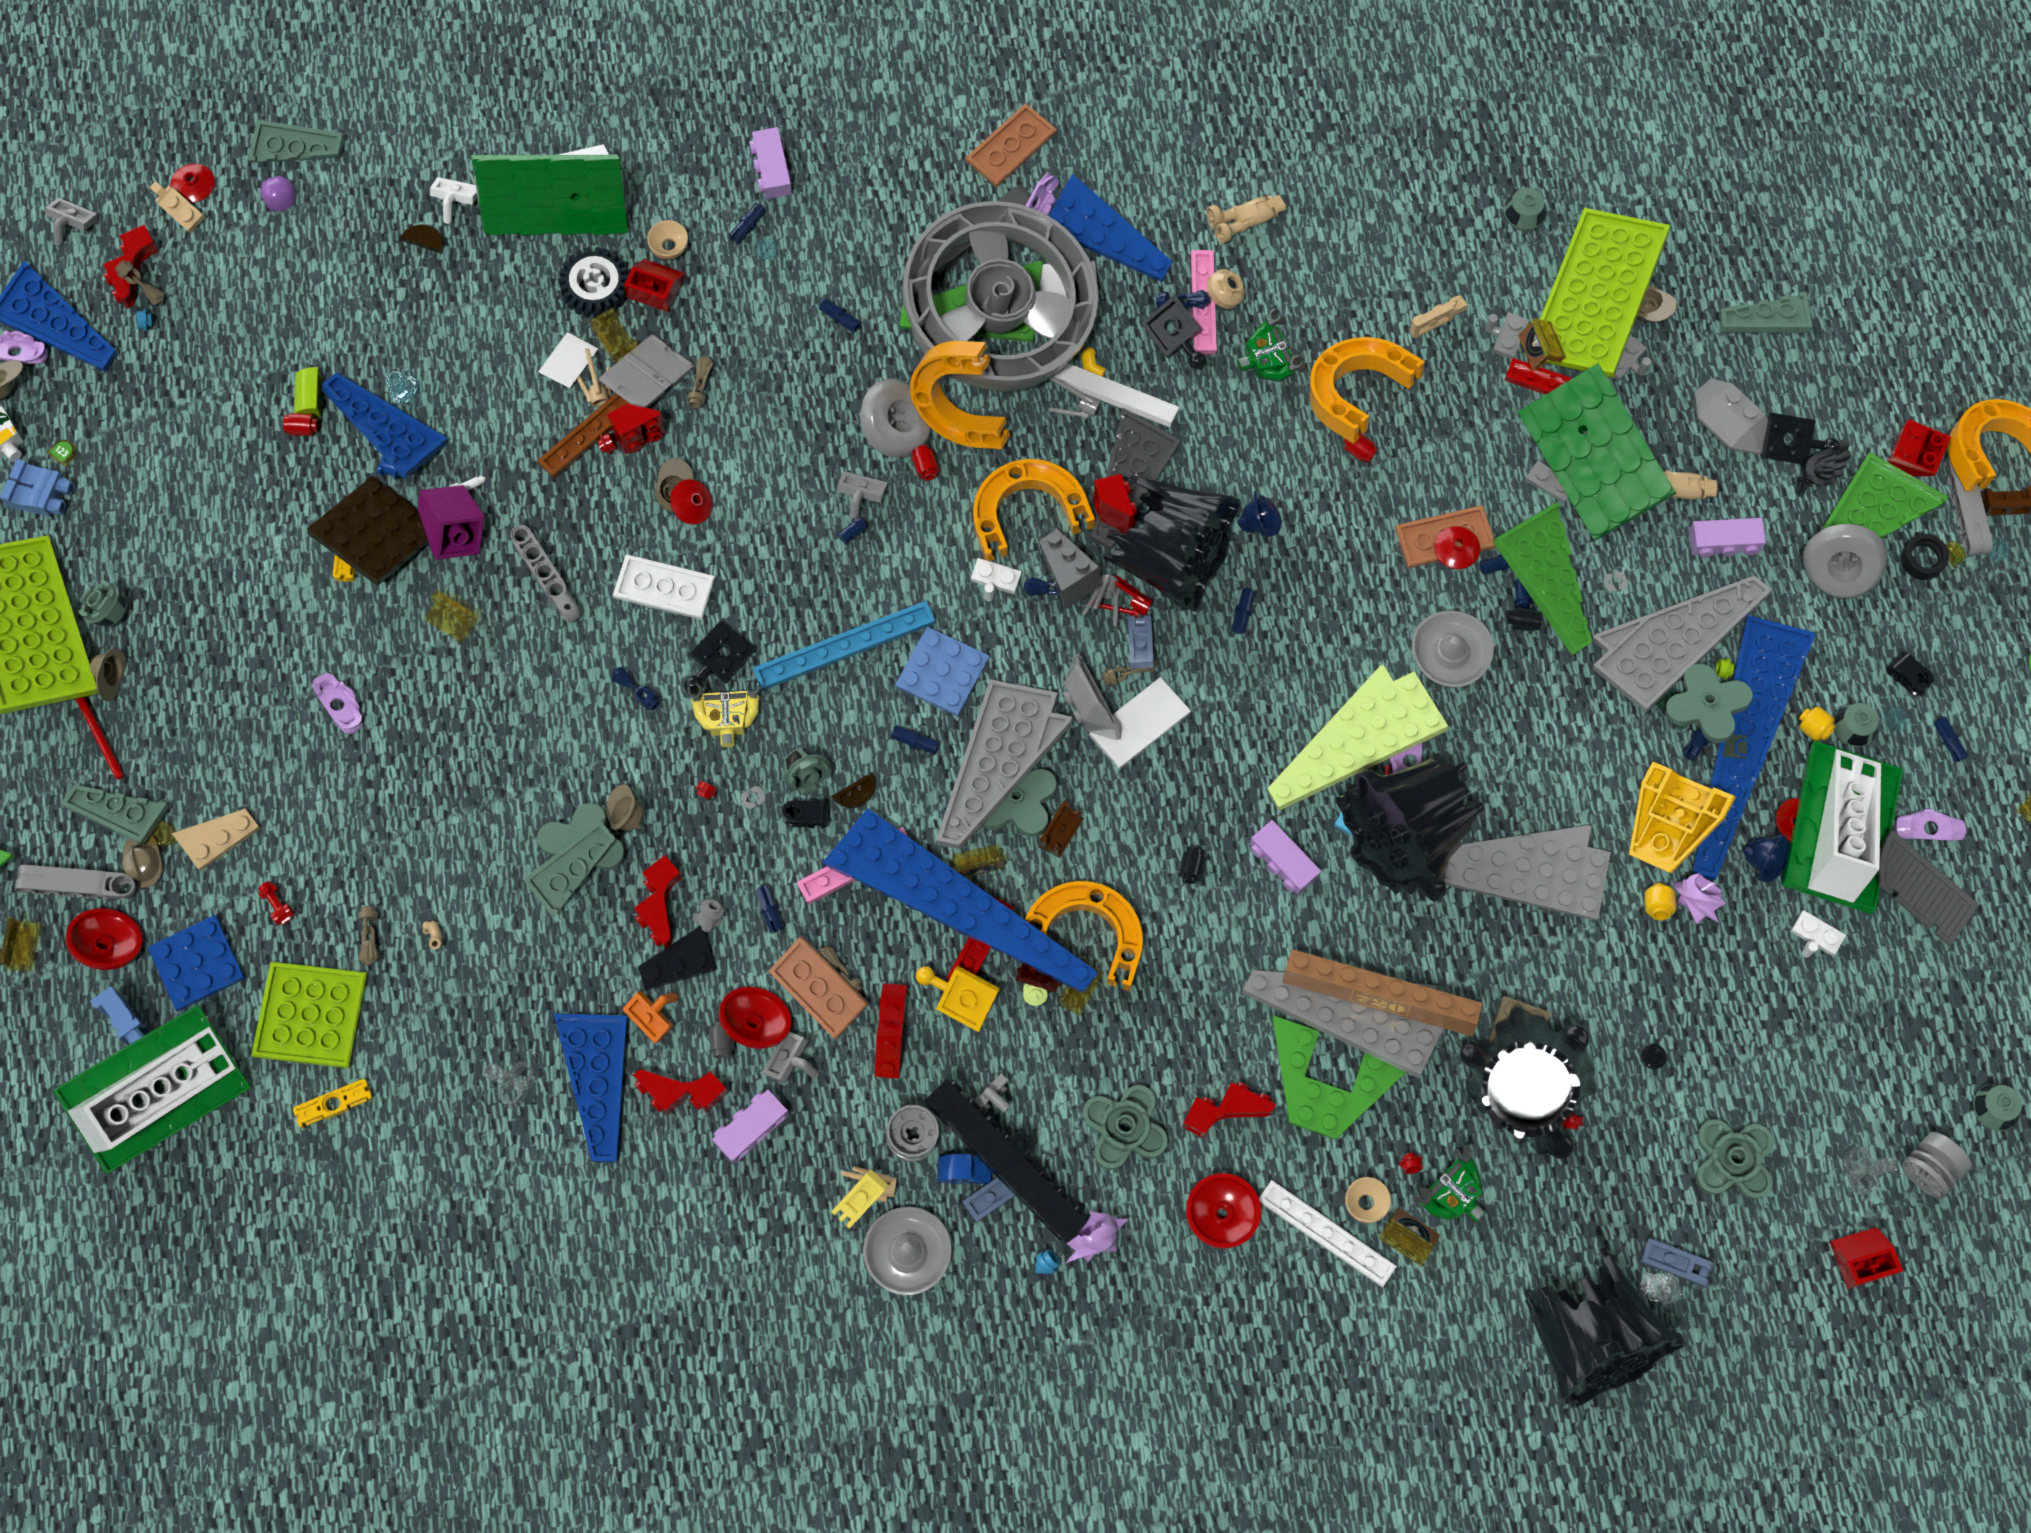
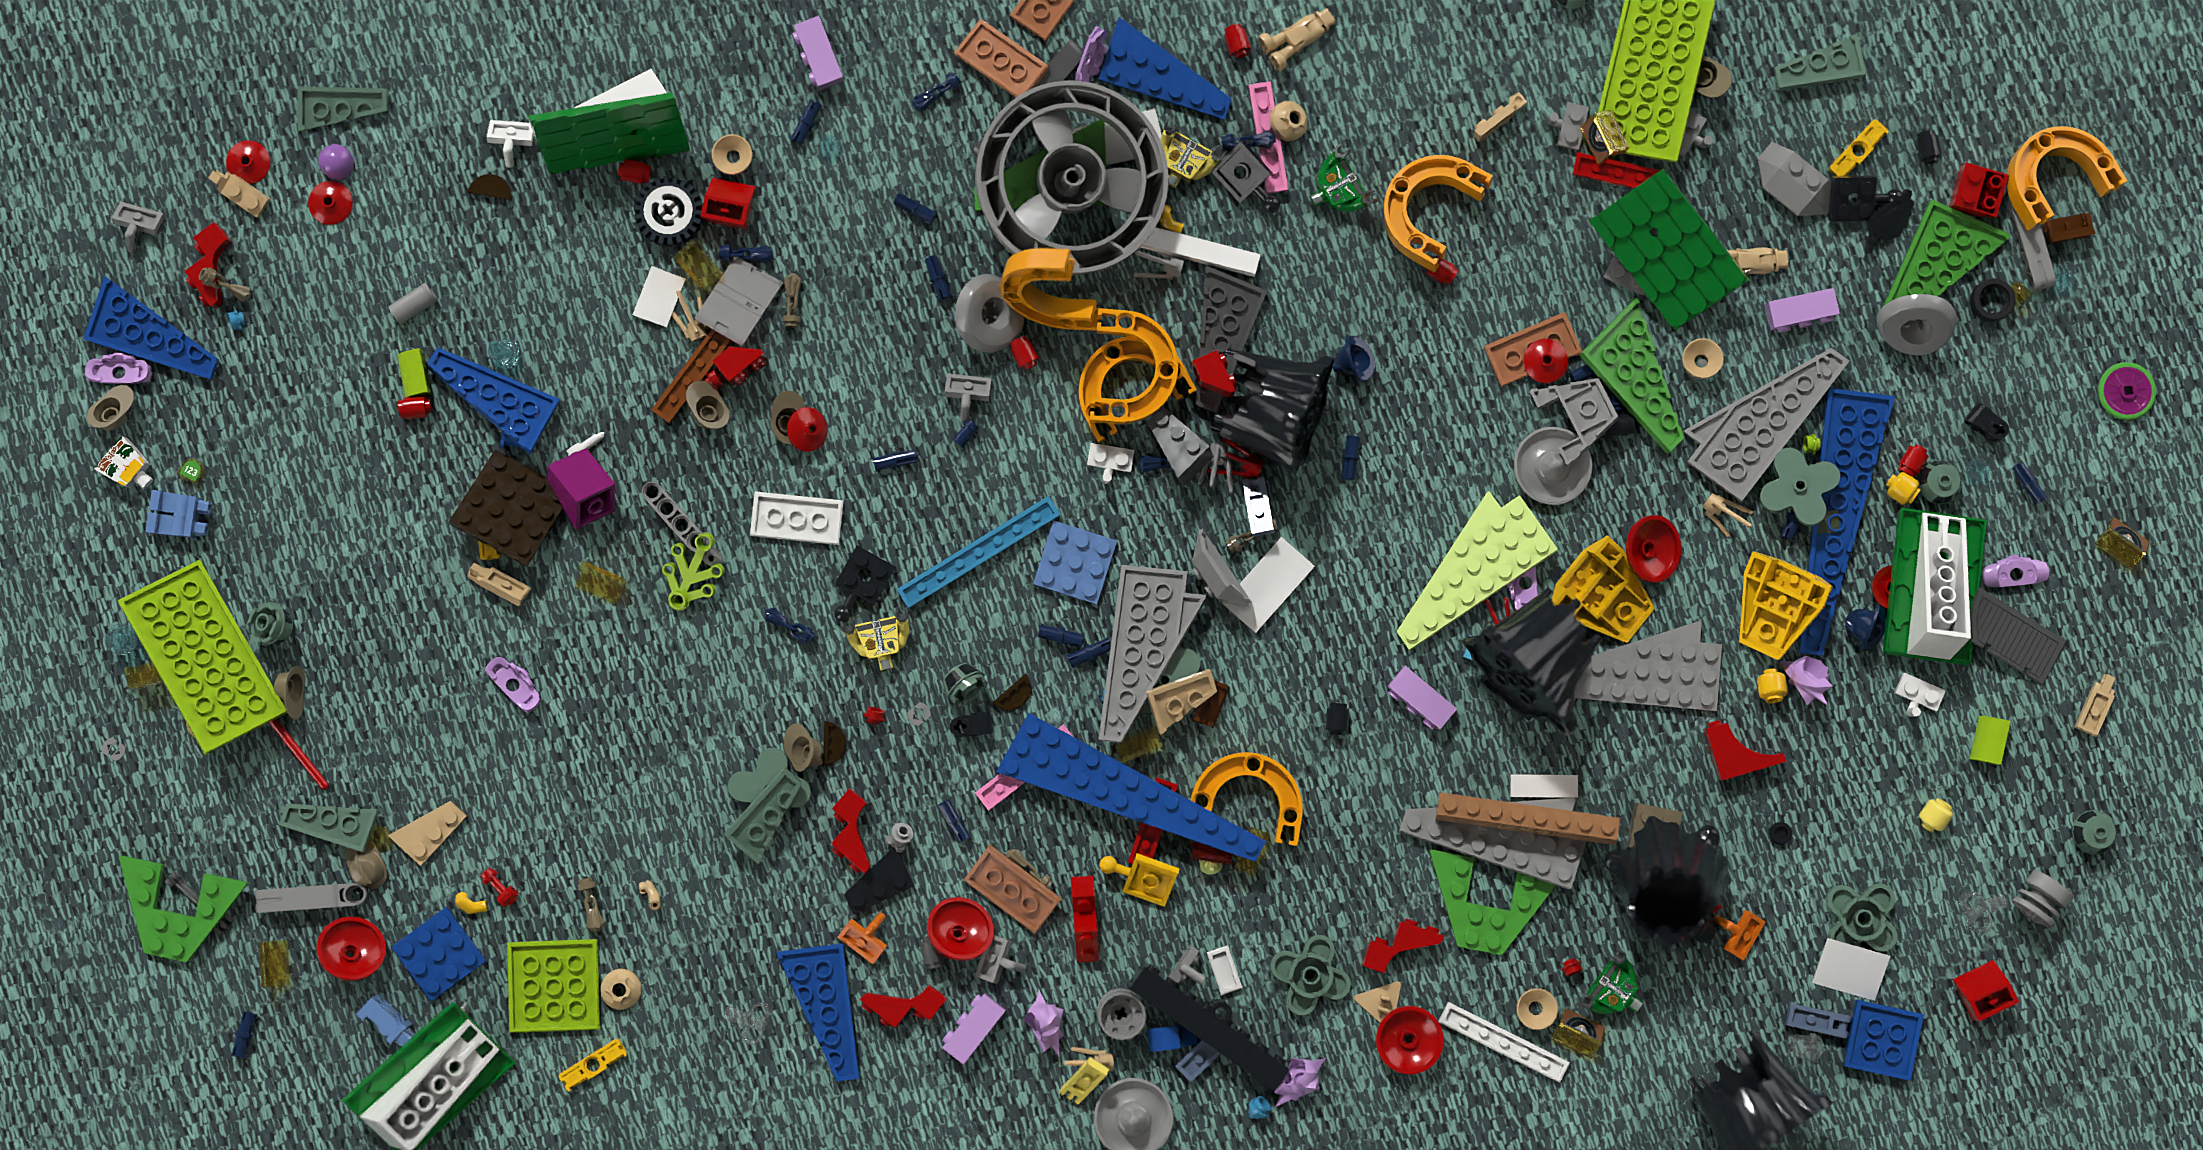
camera: 10 degrees left, 15 degrees up
(239, 919) = (468, 906): none -> yellow arm
(265, 237) = (340, 205): none -> red dish
(322, 329) = (413, 303): none -> light grey pin
(346, 603) = (499, 583): none -> tan hinge
(386, 1039) = (632, 985): none -> tan piece
(543, 620) = (690, 573): none -> lime plant
(568, 242) = (634, 171): none -> red brick
(594, 463) = (707, 405): none -> dark tan piece
(658, 812) = (833, 743): none -> dark brown tile
(678, 335) = (762, 254): none -> dark blue piece
(775, 545) = (895, 460): none -> dark blue axle
(828, 1133) = (1045, 1023): none -> lavender hair
(850, 382) = (937, 277): none -> dark blue axle
(866, 220) = (923, 101): none -> dark blue piece
(941, 761) = (1089, 652): none -> dark blue pin
(944, 187) = (1001, 59): none -> nougat tile
(1028, 812) = (1177, 698): none -> tan wing
(1032, 1109) = (1224, 970): none -> white tile
(1058, 509) = (1164, 354): none -> light orange piece
(1119, 306) = (1186, 157): none -> torso
(1185, 210) = (1237, 41): none -> red brick
(1196, 1167) = (1380, 1000): none -> tan piece
(1405, 968) = (1544, 786): none -> white tile
(1494, 595) = (1587, 409): none -> light grey wing
(1498, 778) = (1607, 590): none -> yellow wedge
(1548, 742) = (1661, 548): none -> red dish
(1603, 1155) = (1742, 934): none -> orange plate
(1610, 968) = (1732, 757): none -> red arch
(1618, 713) = (1716, 505): none -> tan plant
(1621, 559) = (1705, 348): none -> tan piece
(1718, 1212) = (1851, 969): none -> white sticker
(1747, 1295) = (1883, 1040): none -> blue plate
(1807, 389) = (1867, 139): none -> yellow piece
(1825, 1061) = (1936, 815): none -> light yellow head
(1831, 698) = (1913, 460): none -> red brick
(1870, 404) = (1928, 147): none -> black brick
(1890, 992) = (1990, 740): none -> lime brick
(2007, 976) = (2096, 706): none -> tan hinge

